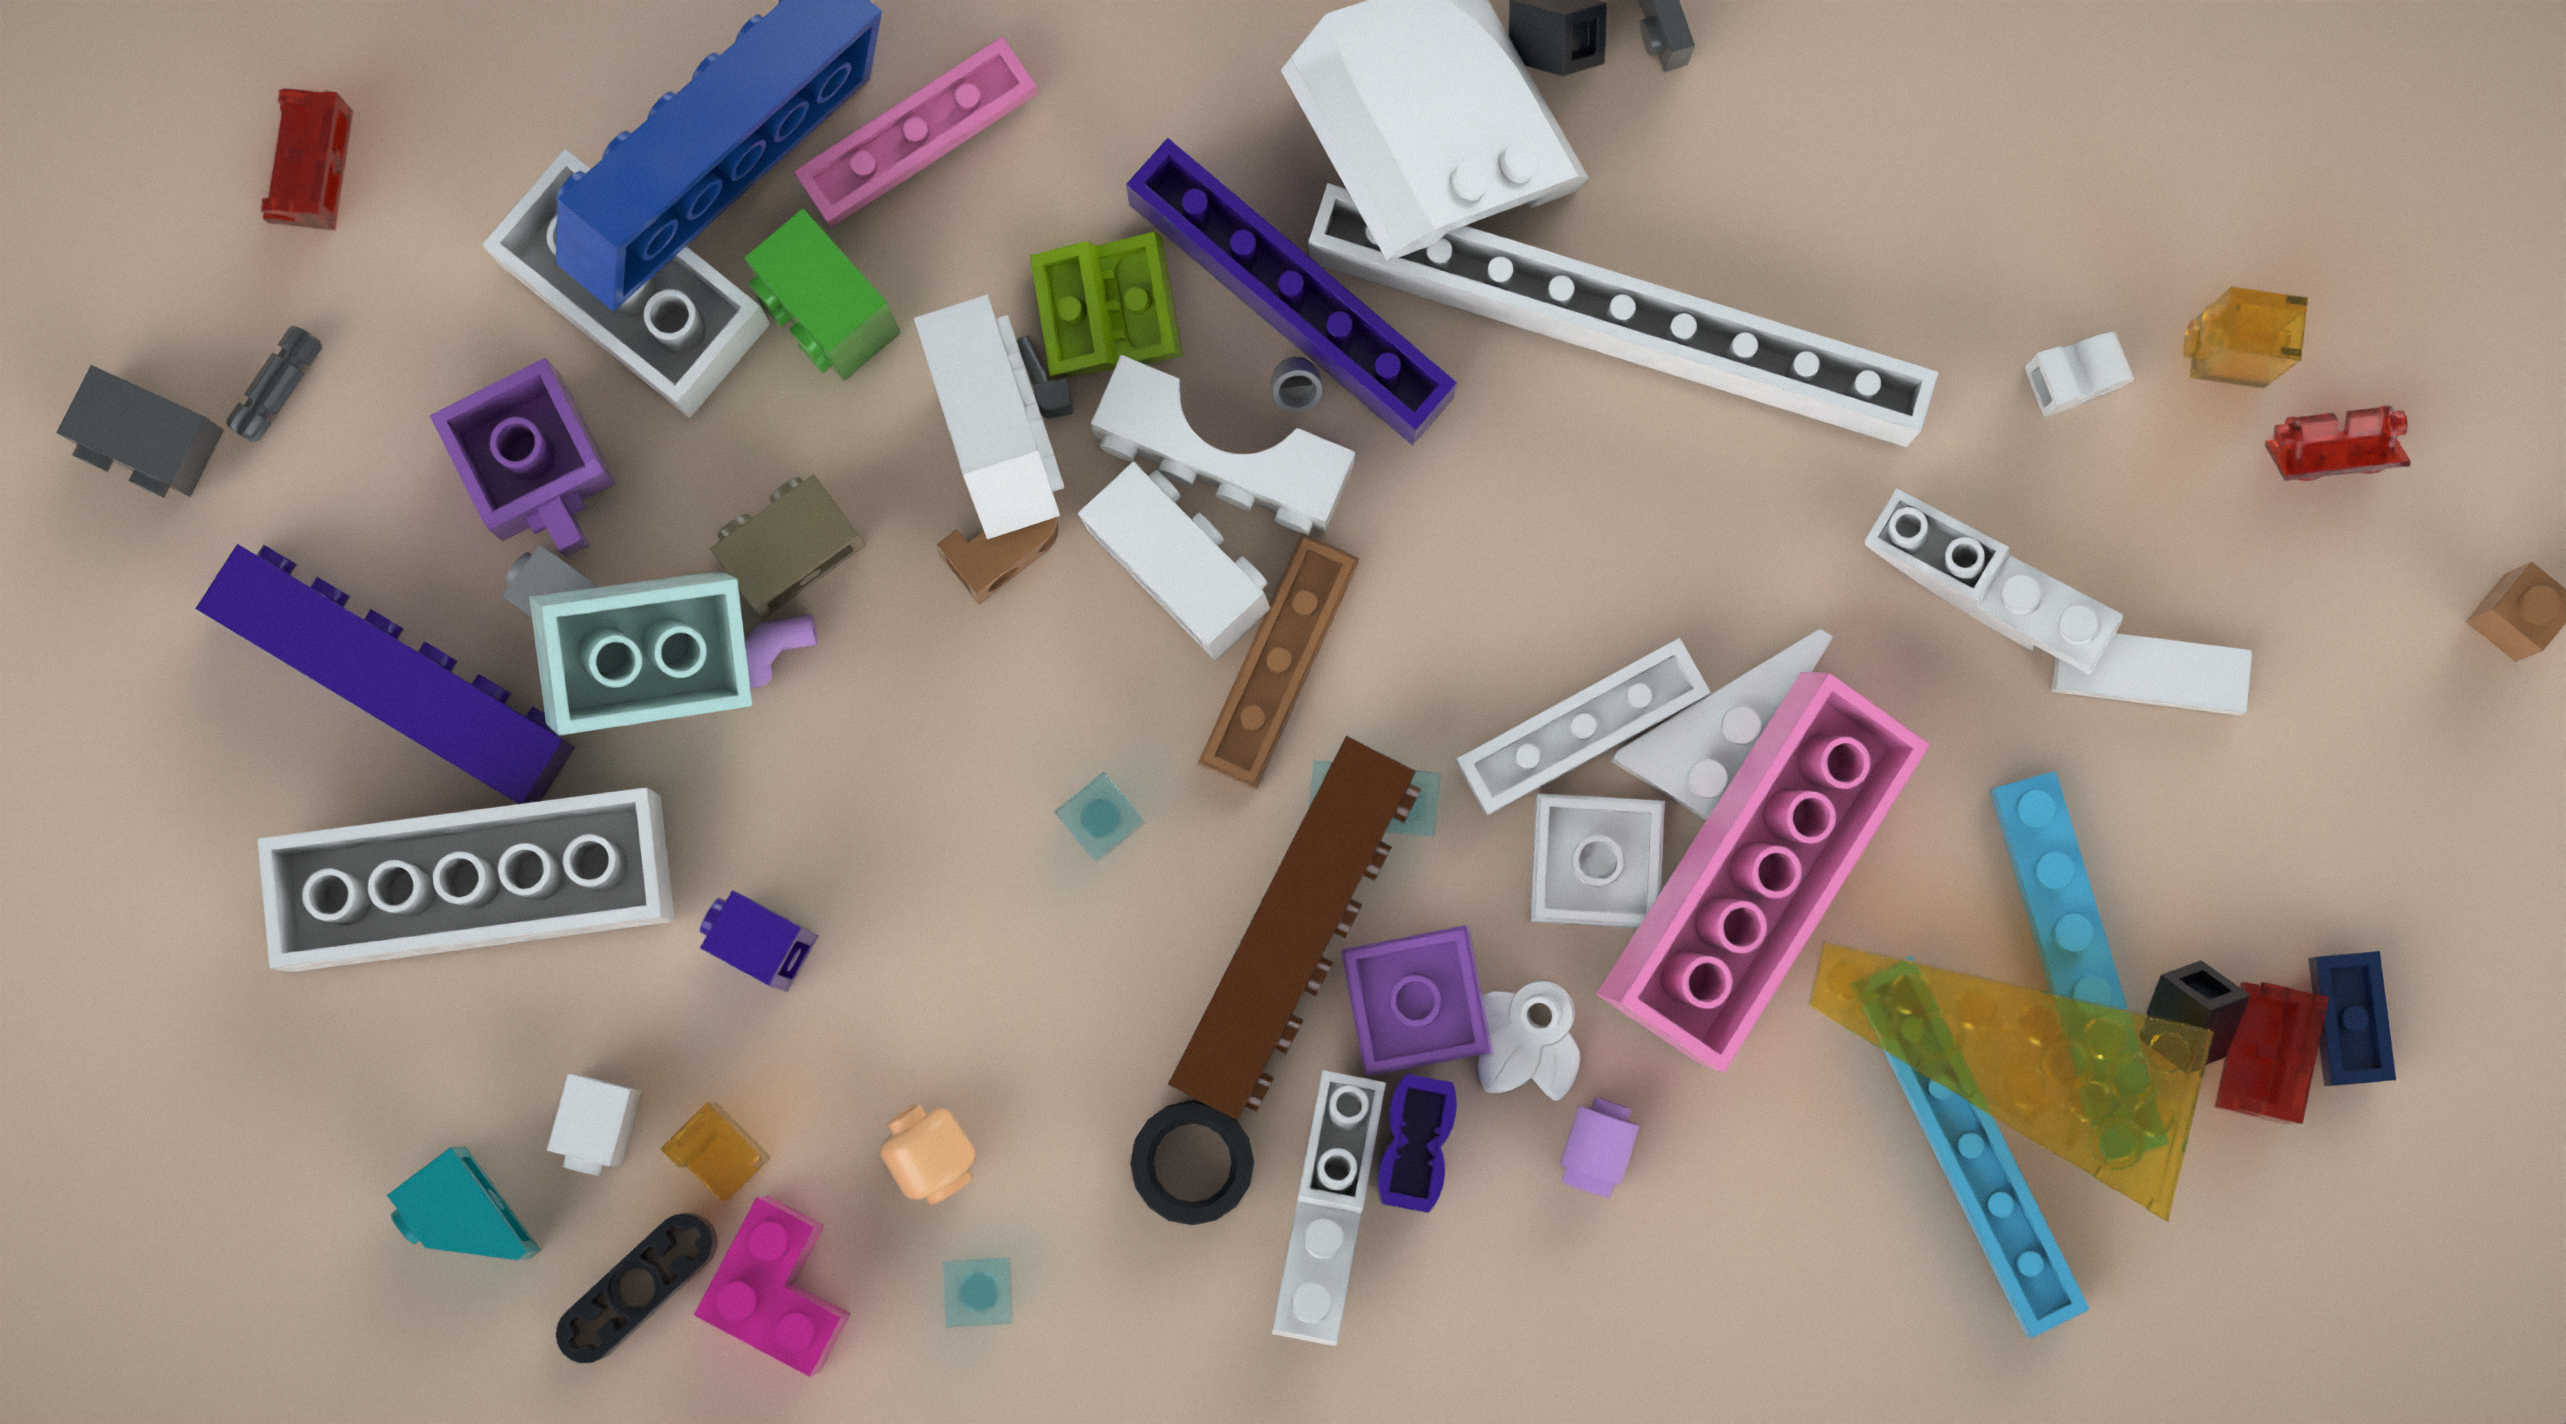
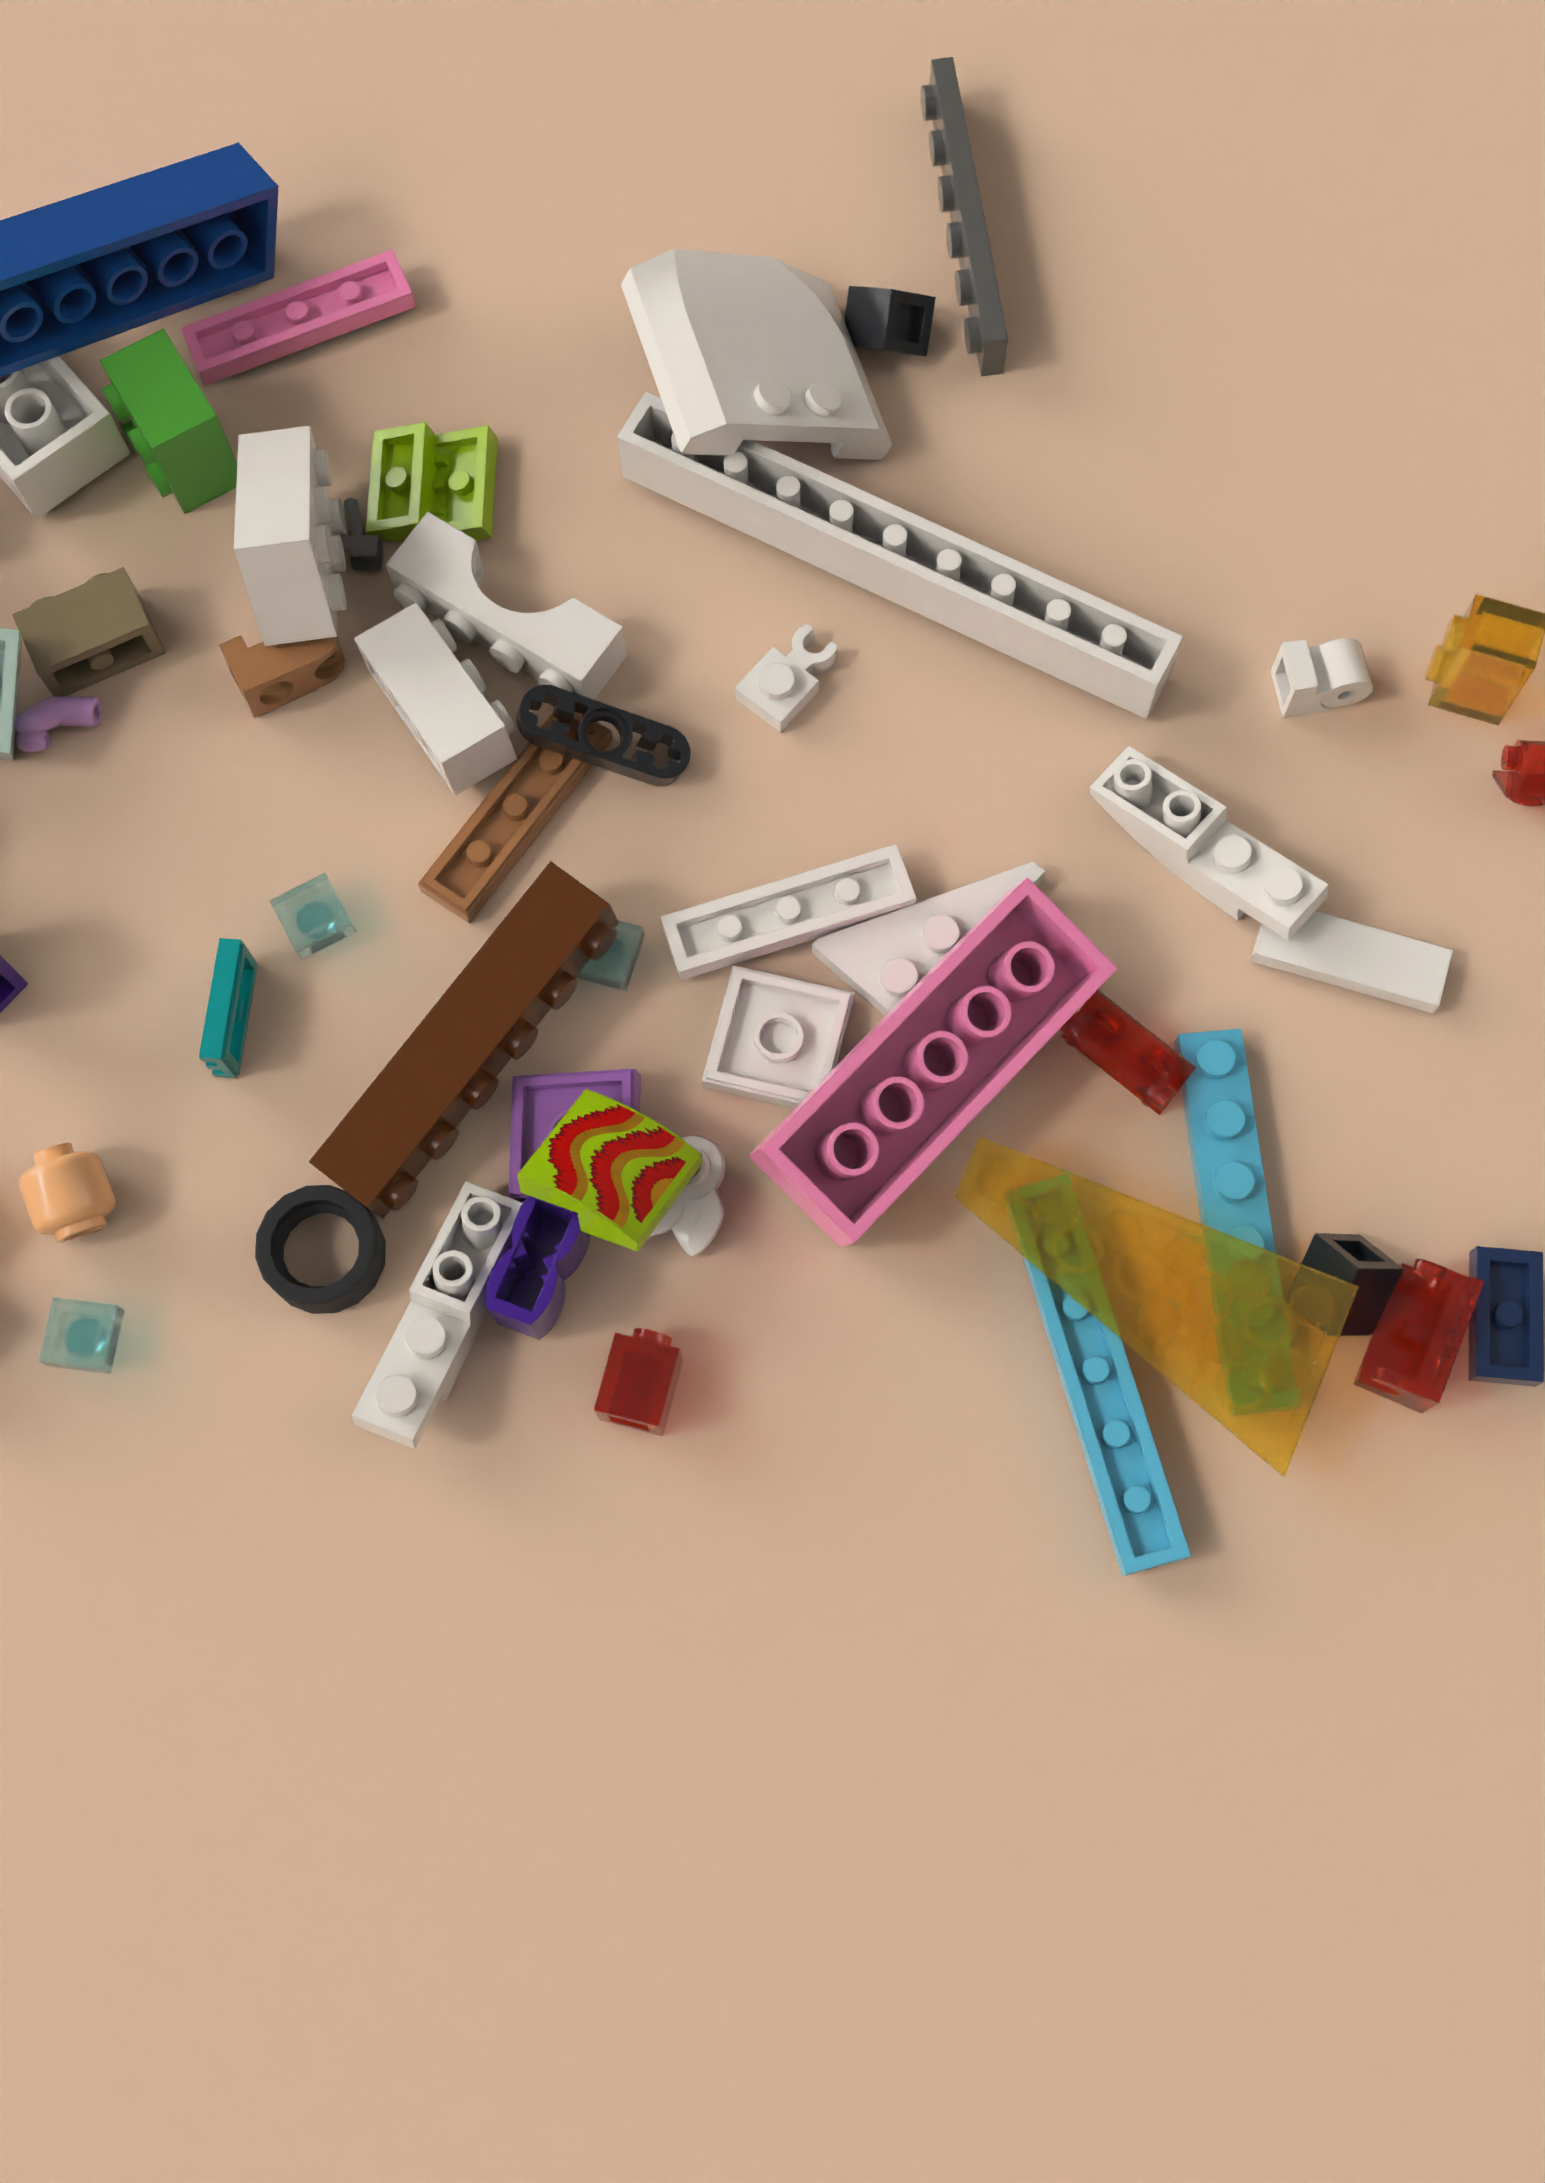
camera: 15 degrees right, 10 degrees down
(1040, 932) = (228, 1008): none -> teal tile
(1290, 291) = (598, 489): dark purple brick -> none
(1296, 385) = (586, 583): light grey hinge -> none
(1398, 592) = (626, 723): none -> black beam
(1472, 1041) = (611, 1169): none -> slope
(1524, 472) = (784, 684): none -> white plate
(1535, 1237) = (639, 1381): none -> clear red brick
(1599, 1147) = (722, 1305): lavender brick -> none
(1953, 819) = (1127, 1051): none -> clear red hinge

